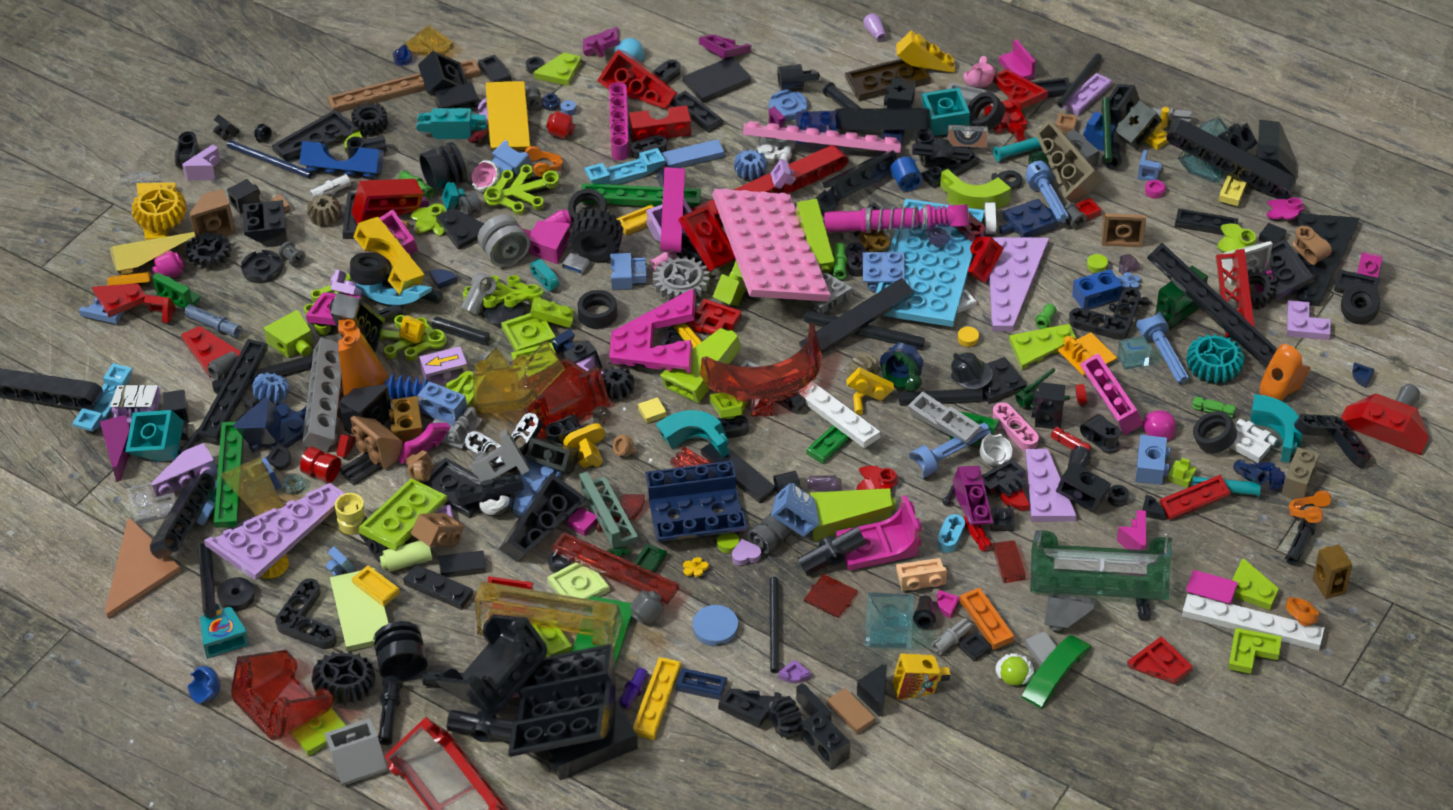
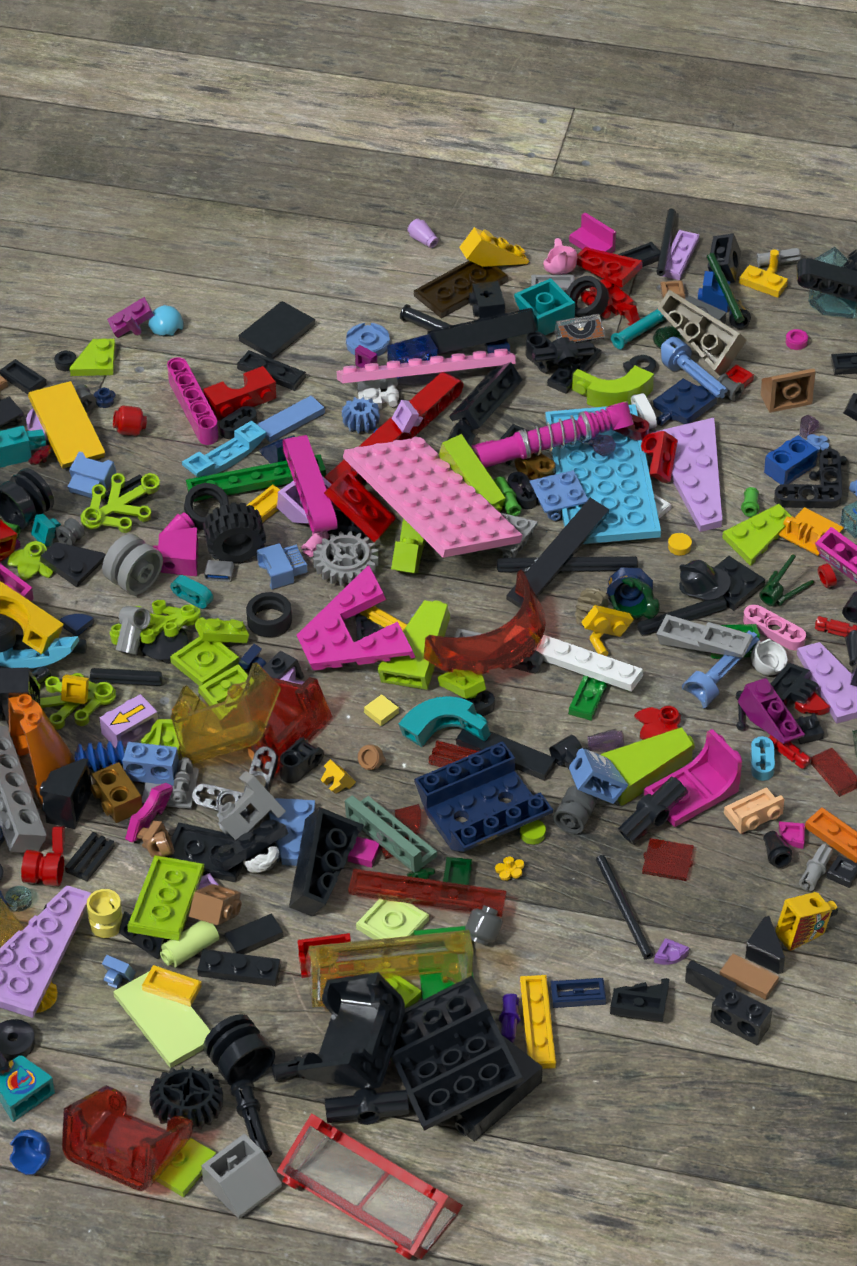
camera: 20 degrees left, 0 degrees up
(298, 618) = (100, 1050): black beam -> none
(376, 440) = (96, 824): medium nougat slope -> none
(485, 175) = (73, 497): bright pink hair -> none
(540, 168) = (134, 474): orange piece -> none
(552, 454) = (299, 786): pearl dark grey brick -> none
(557, 562) = (359, 905): black tile -> none
(568, 107) = (126, 398): medium blue piece -> none
(592, 432) = (315, 765): yellow tile -> none
(601, 415) = (329, 731): clear smoke tile -> none
(618, 383) = (335, 689): black gear -> none
(639, 80) = (199, 352): red wedge -> none
(668, 70) = (221, 337): black beam -> none
(715, 625) = (562, 925): medium blue tile -> none
(716, 314) = (403, 587): red plate -> none
(723, 46) = (267, 291): magenta wing -> none
(745, 553) = (557, 838): lavender tile -> none
(761, 408) = (498, 677): clear red tile -> none
(785, 716) = (689, 1001): black gear -> none
(793, 77) = (363, 307): black piece -> none
(889, 620) = (748, 868): clear light blue slope -> none
(906, 174) = (534, 385): blue piece -> none
(1049, 405) = (804, 595): black brick -> none
(1097, 263) = (775, 432): lime tile -> none
(1138, 125) = (752, 287): pearl dark grey brick -> none
(1148, 169) = (781, 321): medium blue panel -> none

